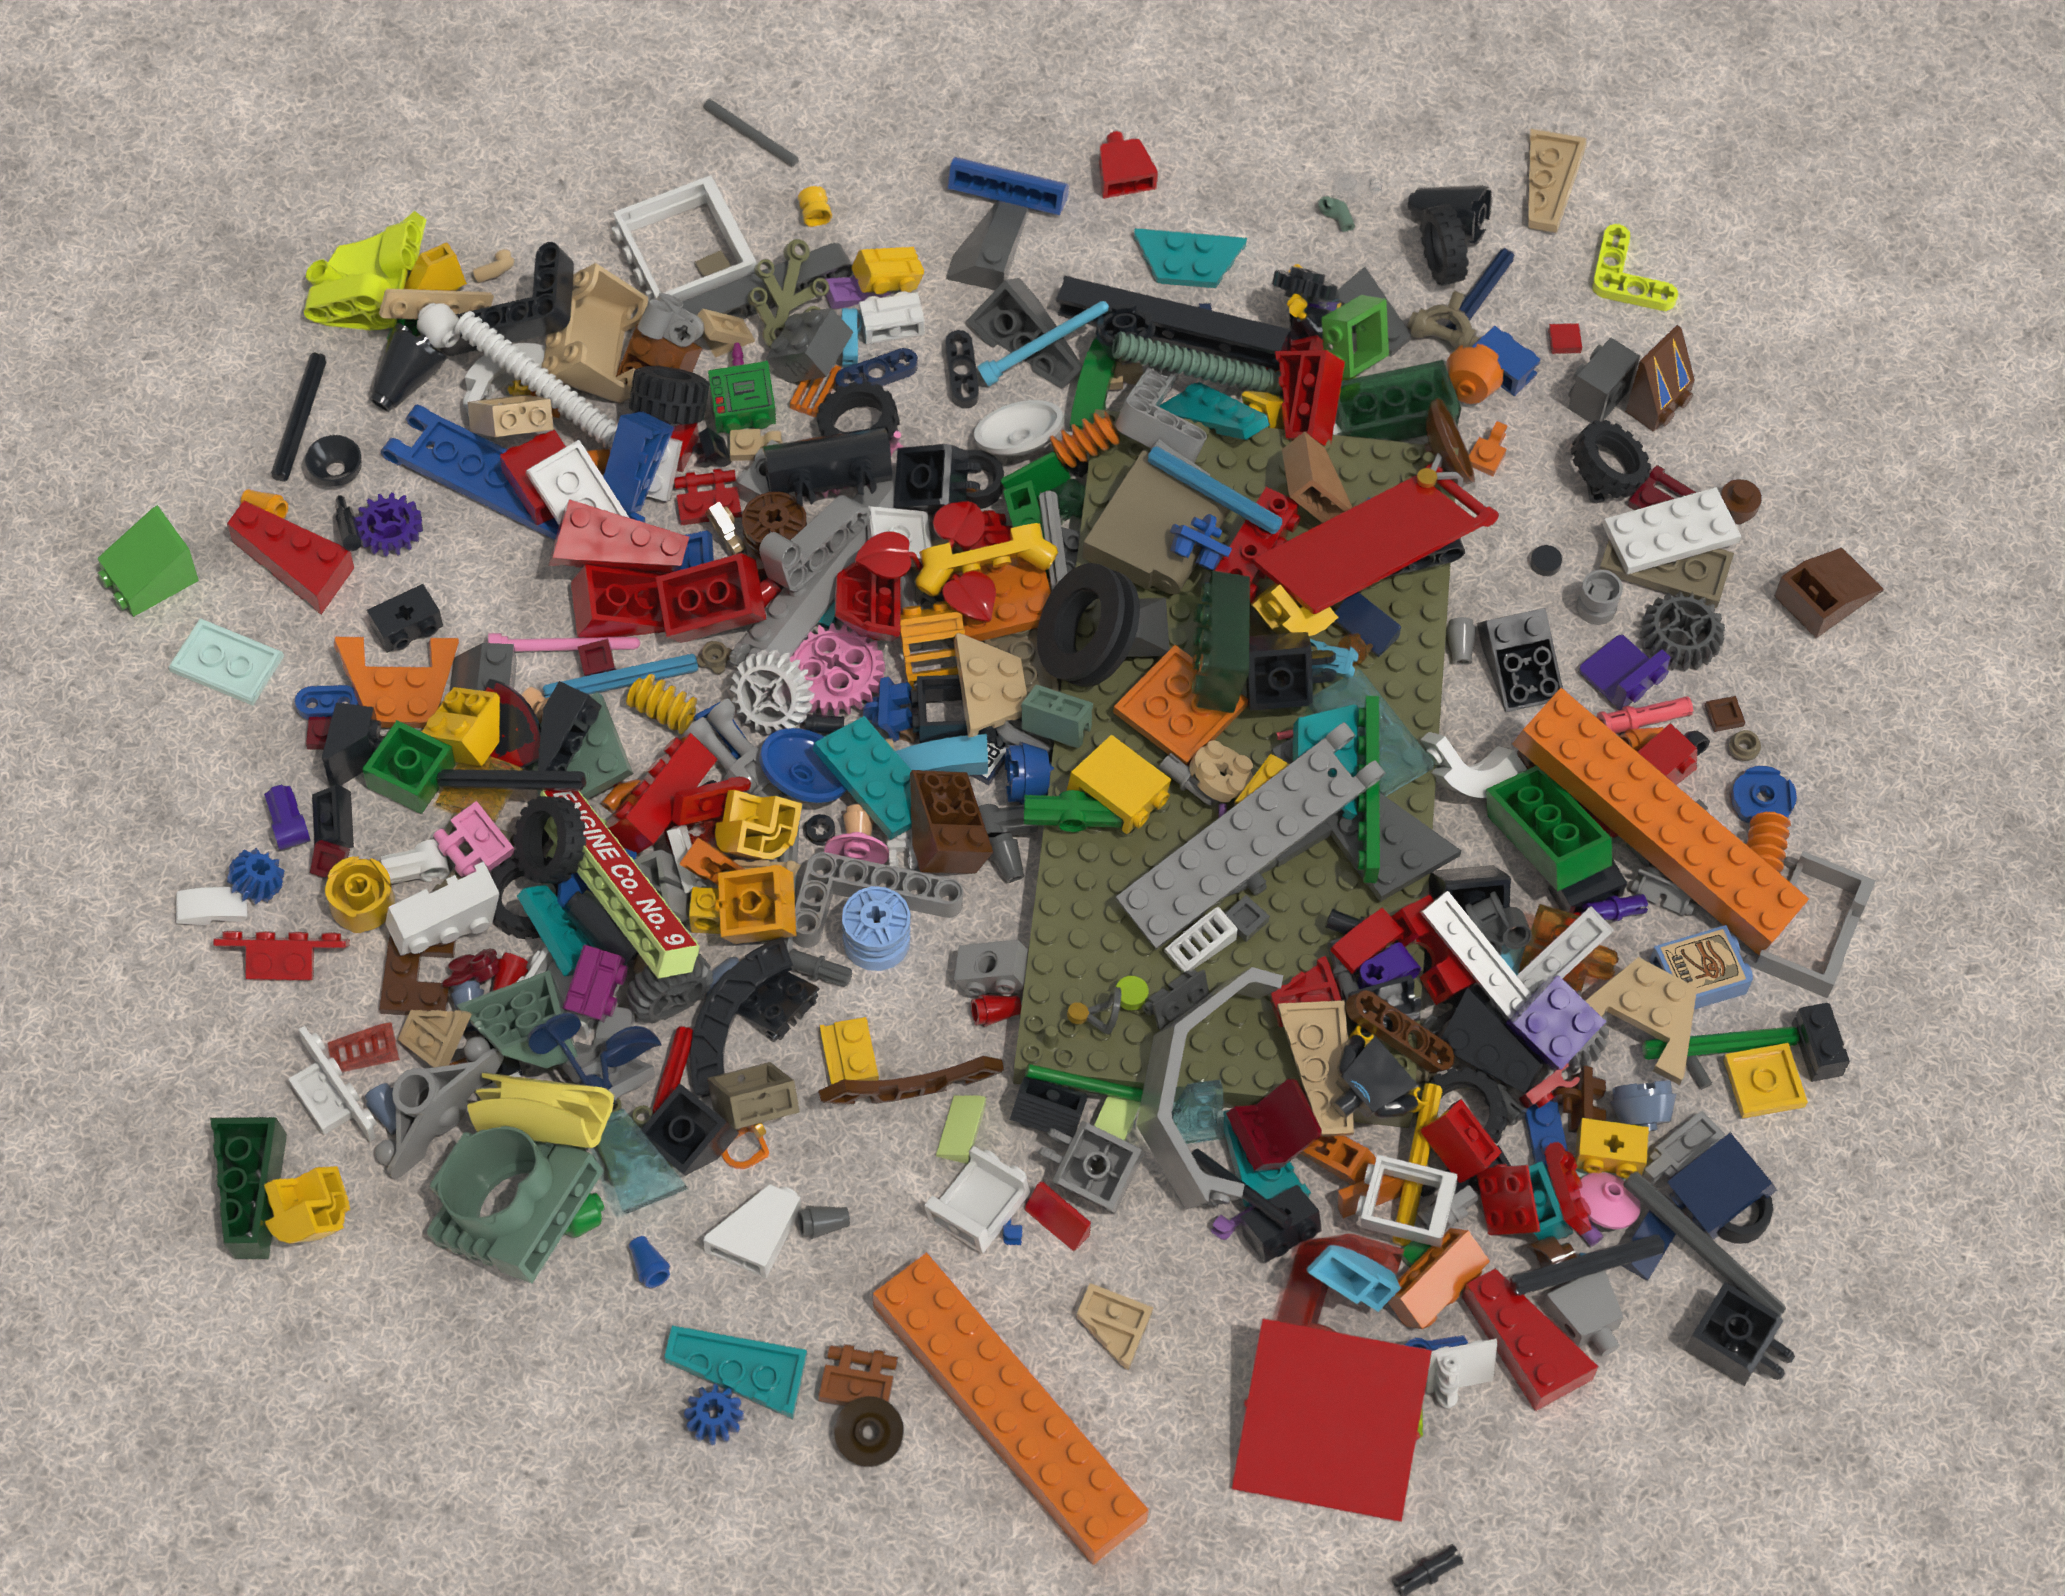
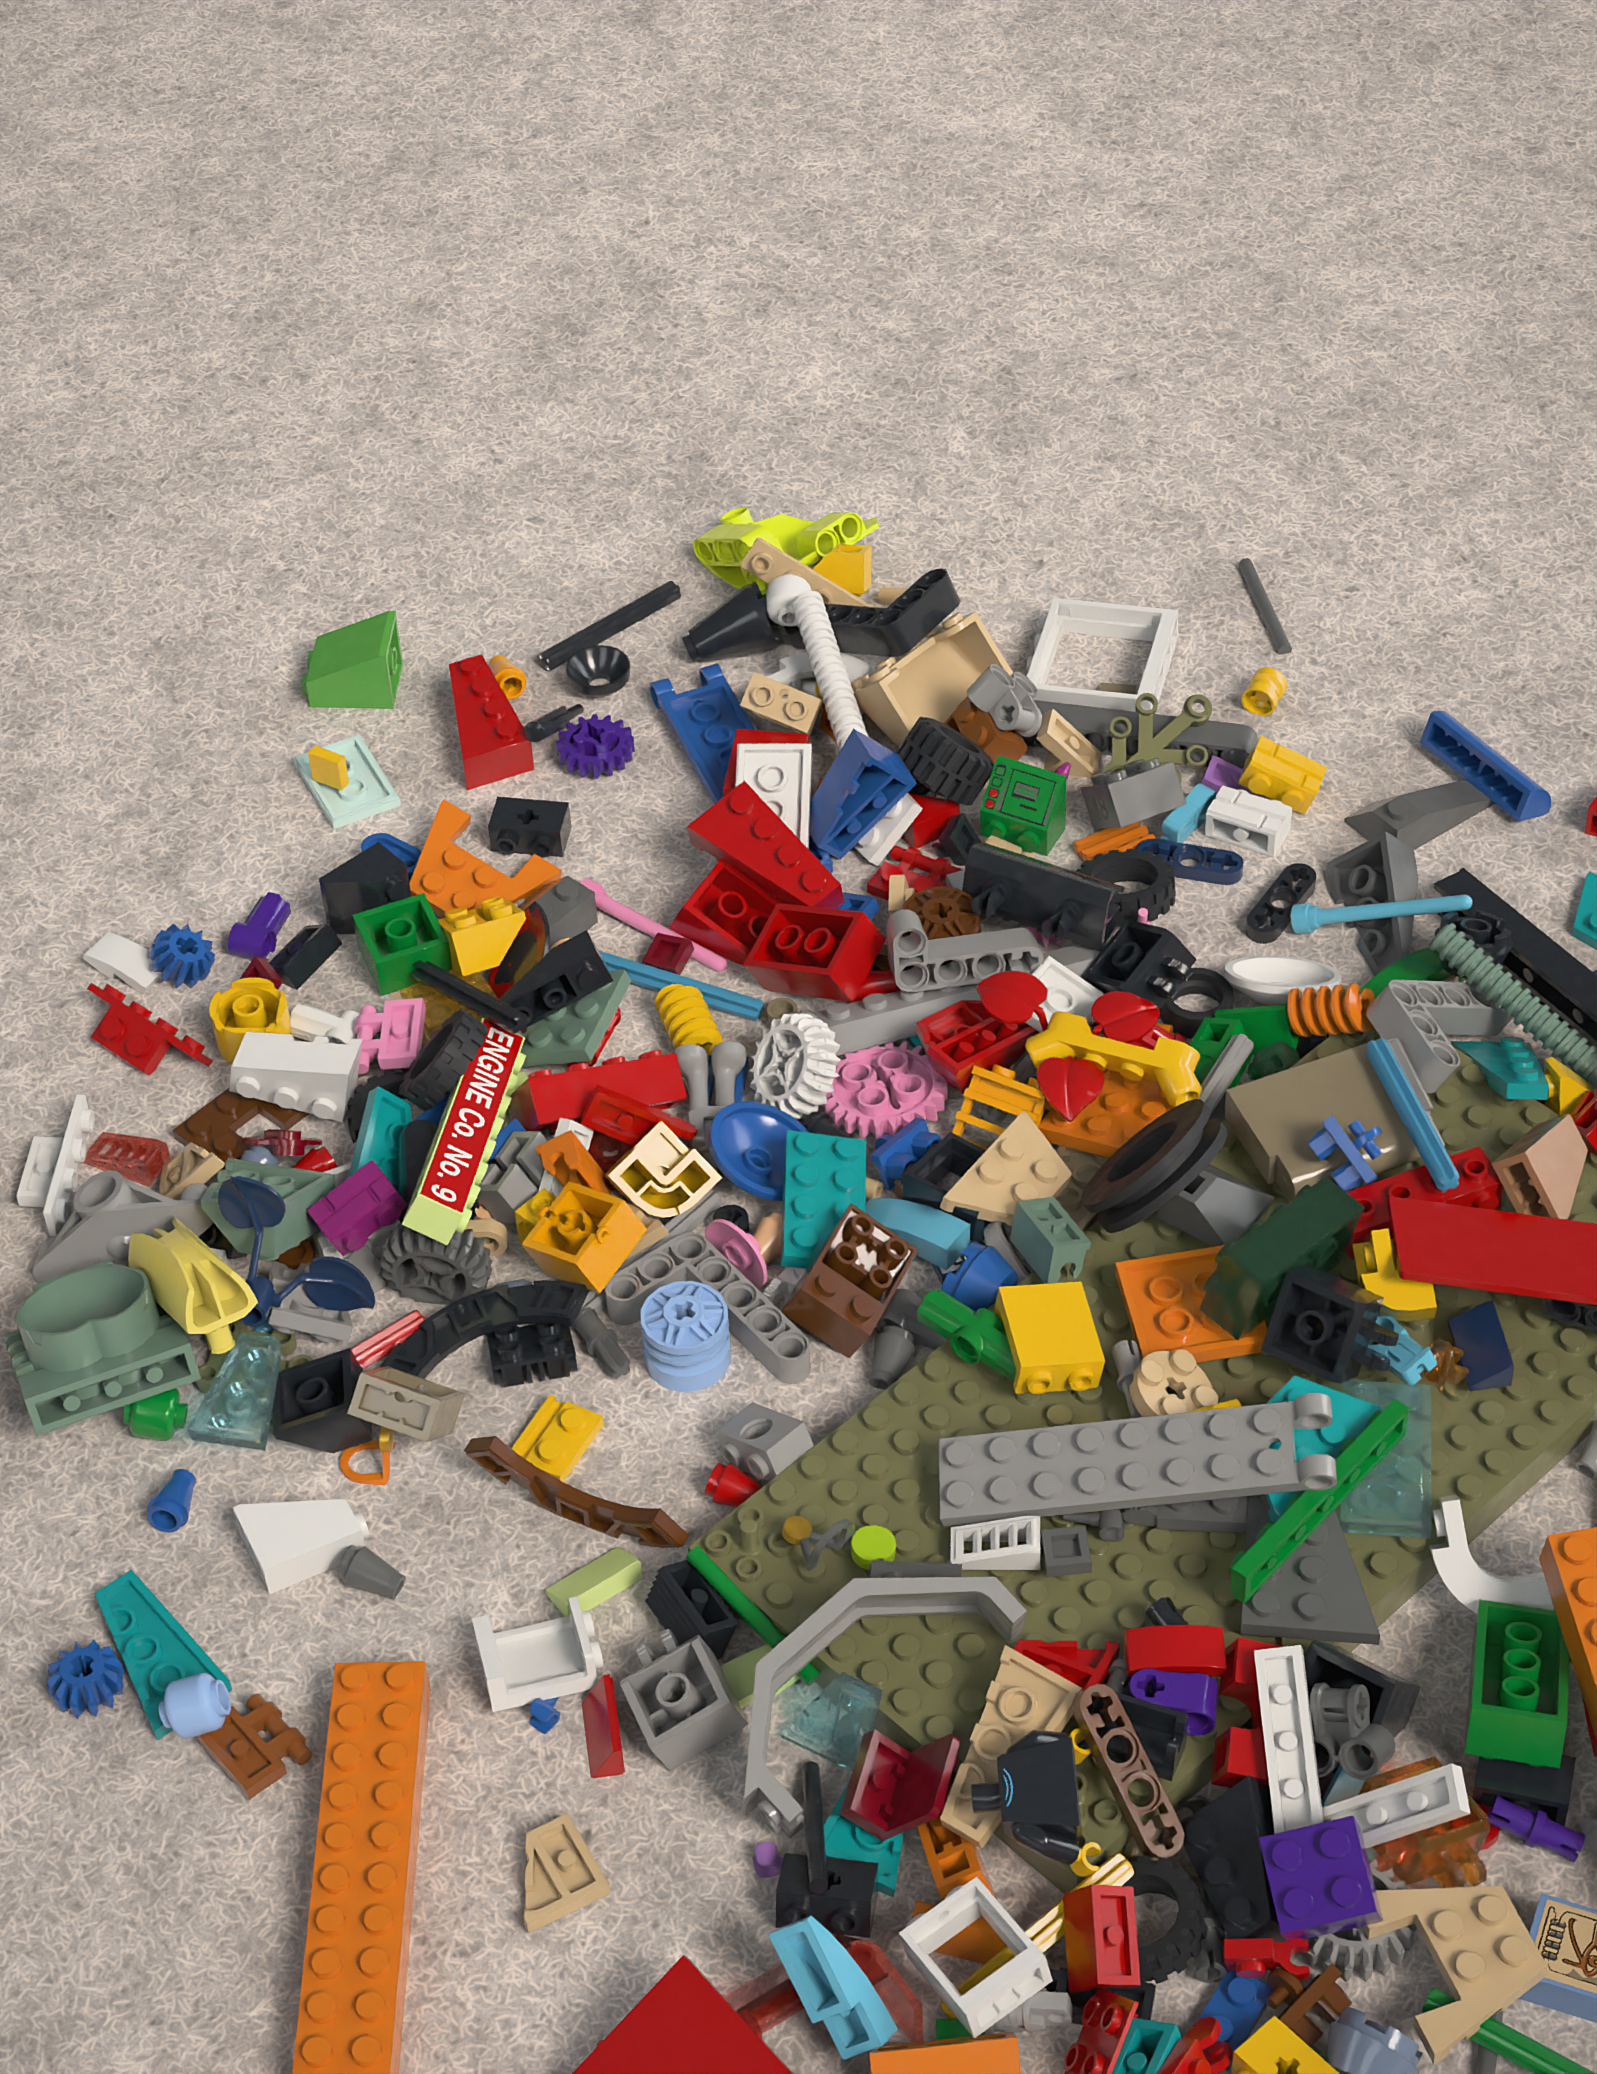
camera: 45 degrees right, 15 degrees down
(215, 661) = (328, 767): none -> yellow tile
(812, 1381) = (195, 1705): none -> light blue head
(851, 1425) = (196, 1788): dark brown dish -> none

